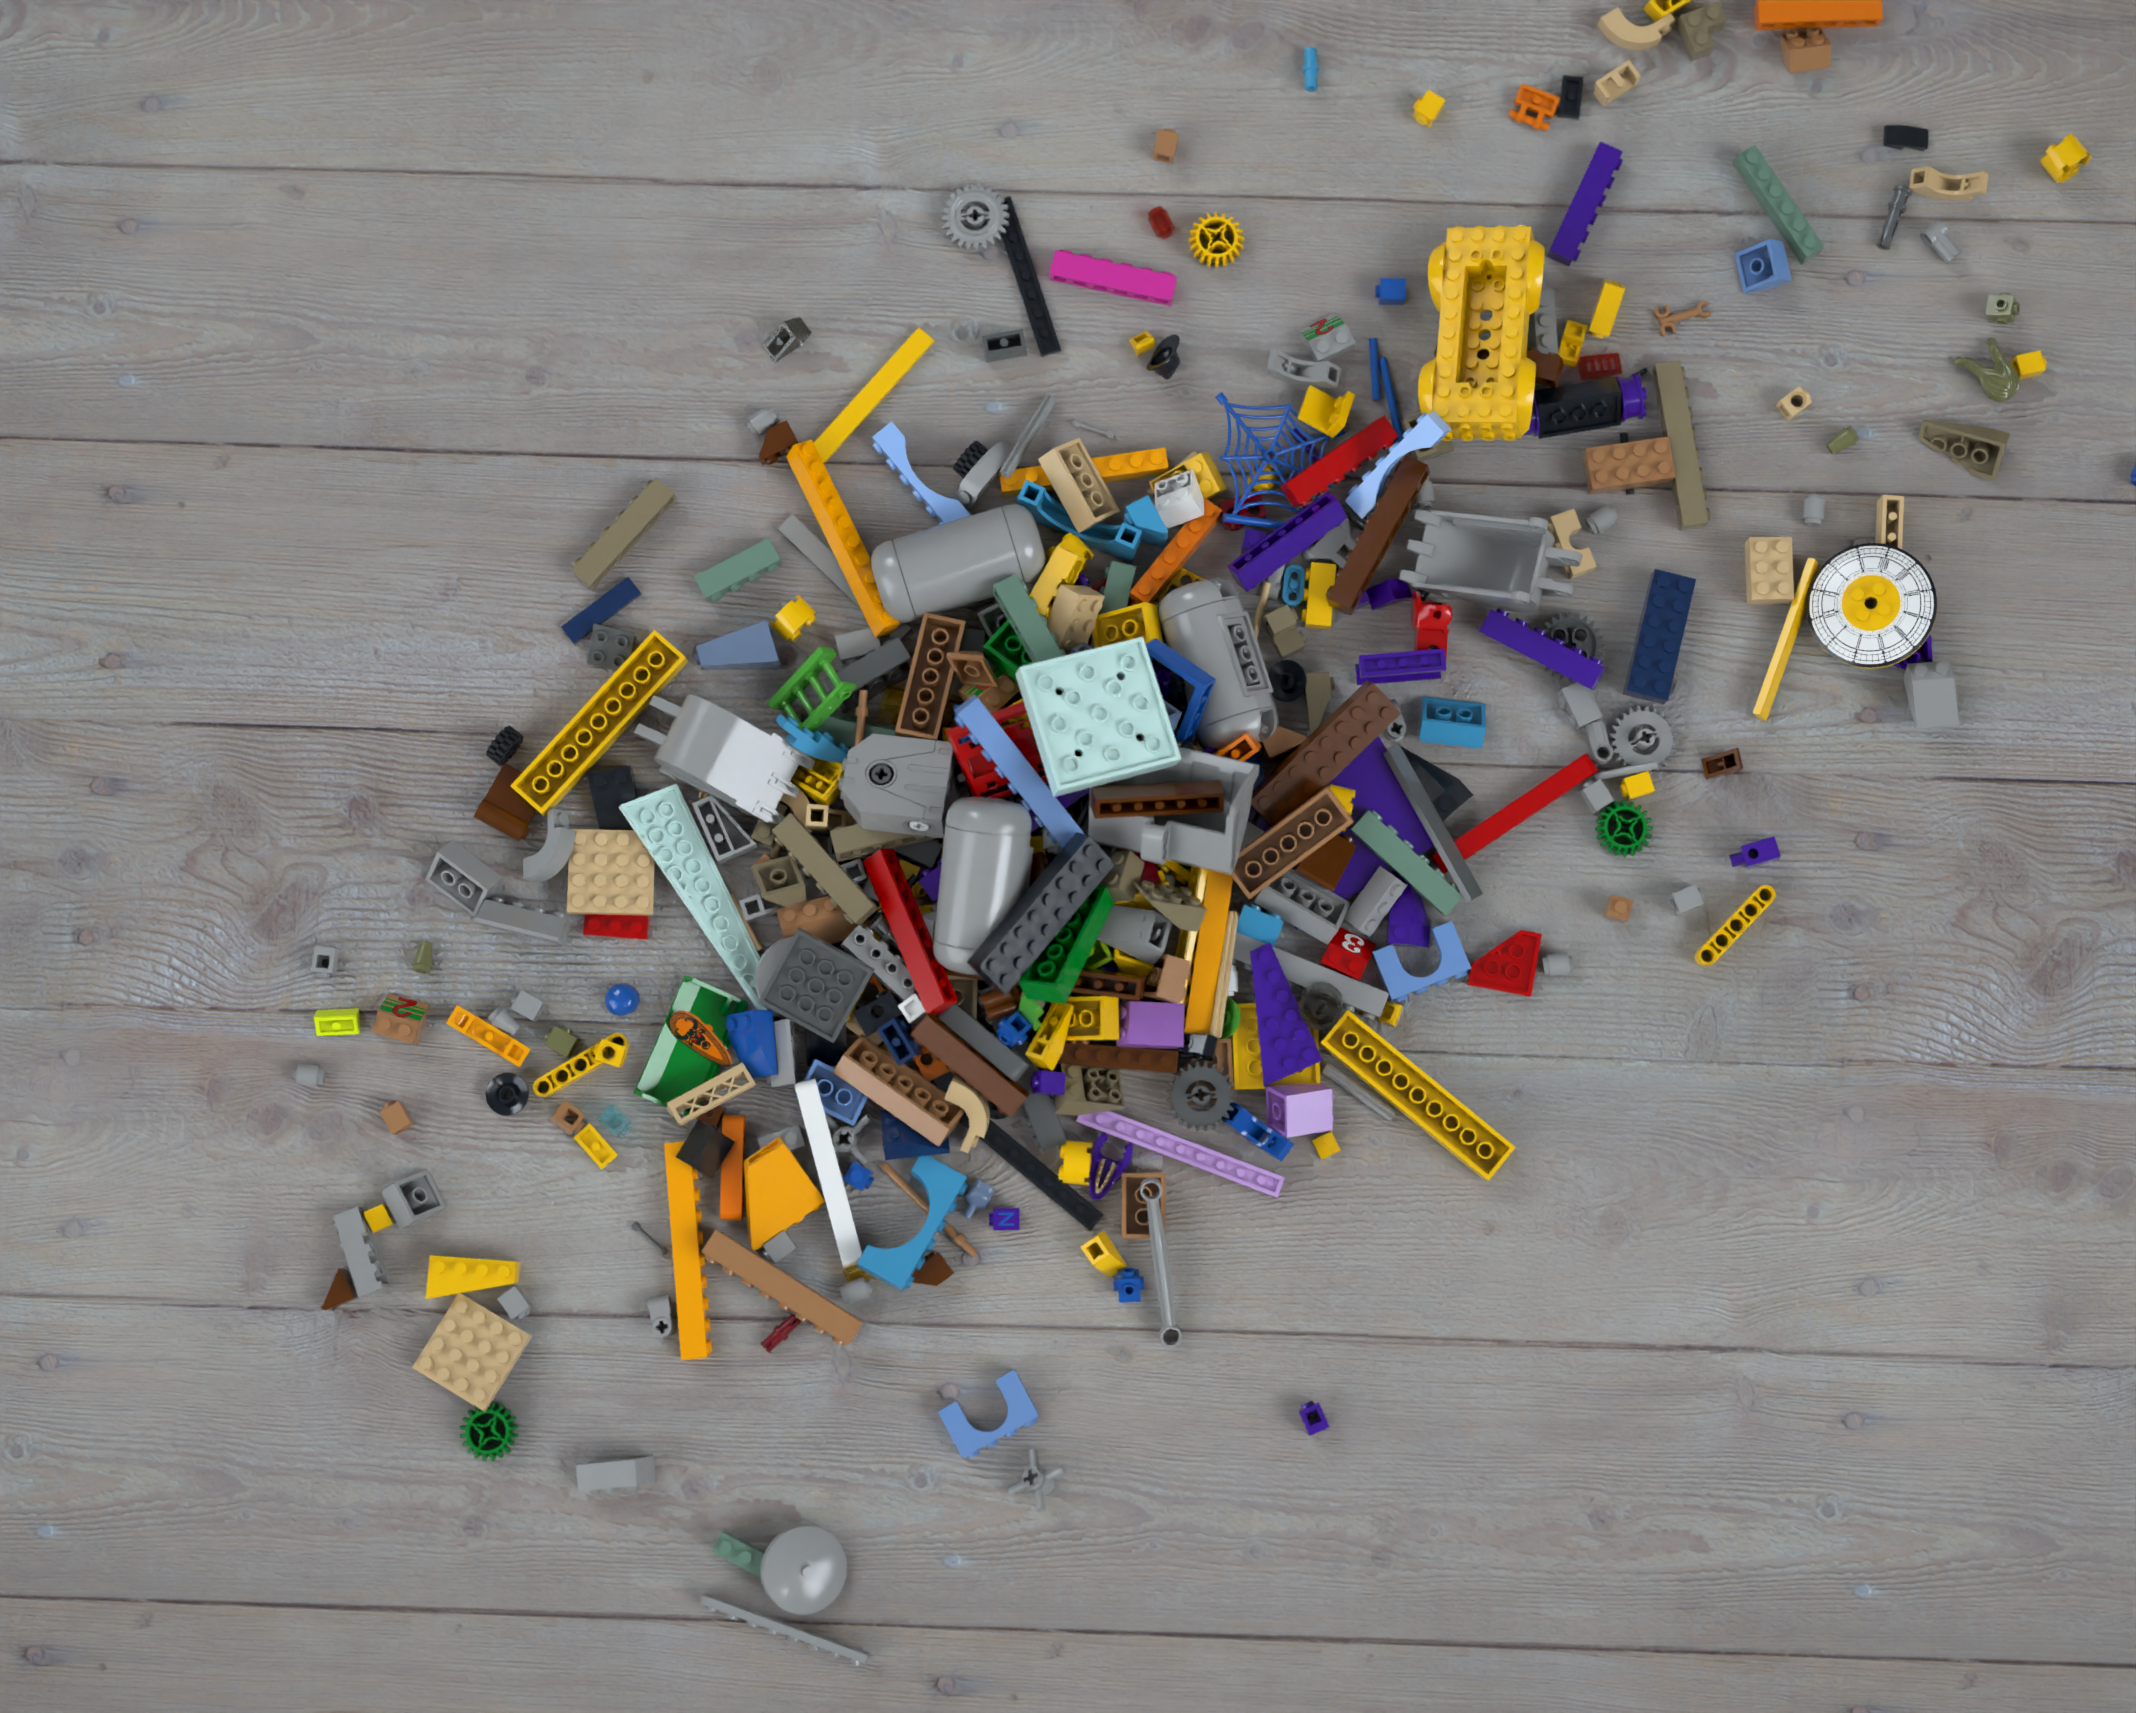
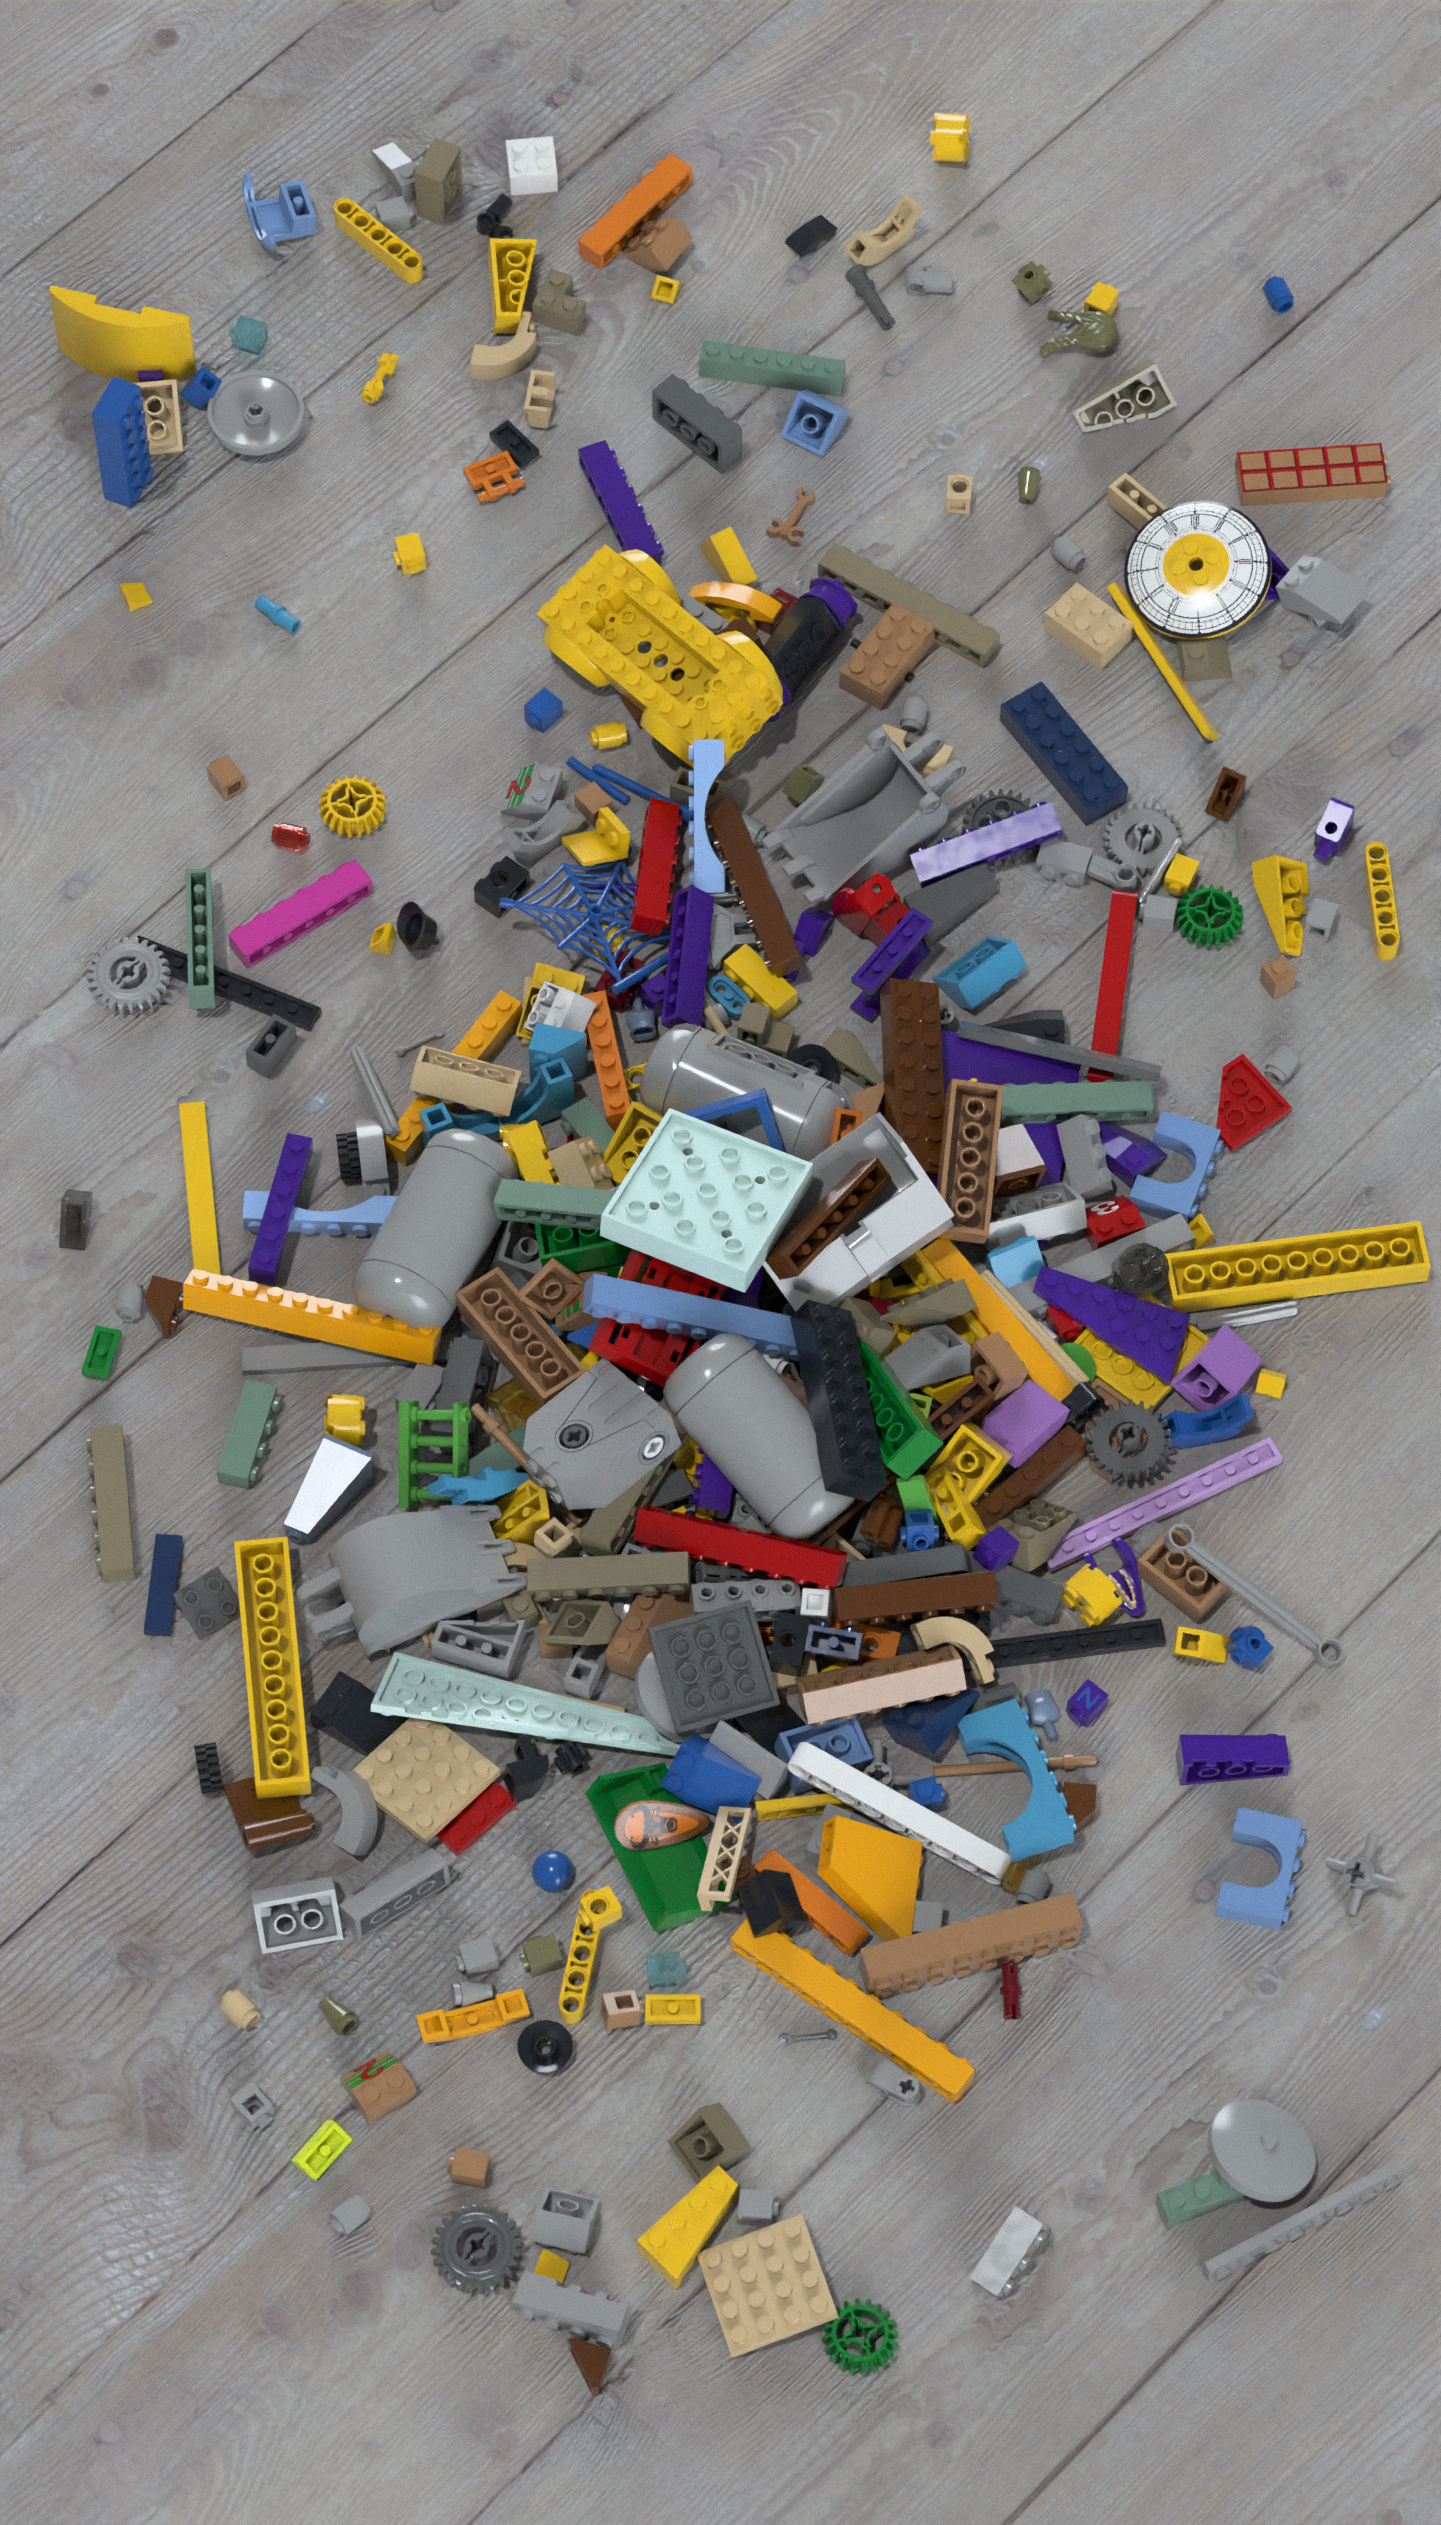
camera: 50 degrees left, 20 degrees down
(371, 1166) = (459, 2268): none -> dark grey gear
(377, 899) = (239, 2009): none -> tan brick
(531, 1241) = (708, 2141): none -> dark tan slope
(665, 933) = (528, 1772): none -> black brick
(699, 946) = (570, 1757): none -> black gear
(715, 436) = (101, 1352): none -> green plate
(782, 1103) = (796, 1807): none -> yellow tile
(878, 463) = (279, 1208): none -> dark purple arch
(959, 1161) = (994, 1696): none -> dark grey piece
(1035, 236) = (200, 938): none -> sand green brick
(1046, 1338) = (1230, 1757): none -> dark purple wedge
(1227, 548) = (641, 1021): none -> sand blue piece
(1233, 387) = (508, 873): none -> black brick
(1246, 988) = (1063, 1325): none -> red brick
(1353, 381) = (590, 800): none -> medium nougat brick
(1411, 347) = (608, 735): none -> yellow brick
(1483, 659) = (952, 899): none -> dark grey slope
(1484, 497) = (802, 783): none -> olive brick
(1581, 336) = (738, 596): none -> light orange slope
(1681, 859) = (1281, 890): none -> yellow wedge
(1689, 196) = (697, 423): none -> dark grey brick
(1778, 84) = (665, 289): none -> yellow slope
(1814, 663) = (1204, 659): none -> dark tan slope
(2021, 612) = (1312, 474): none -> medium nougat brick

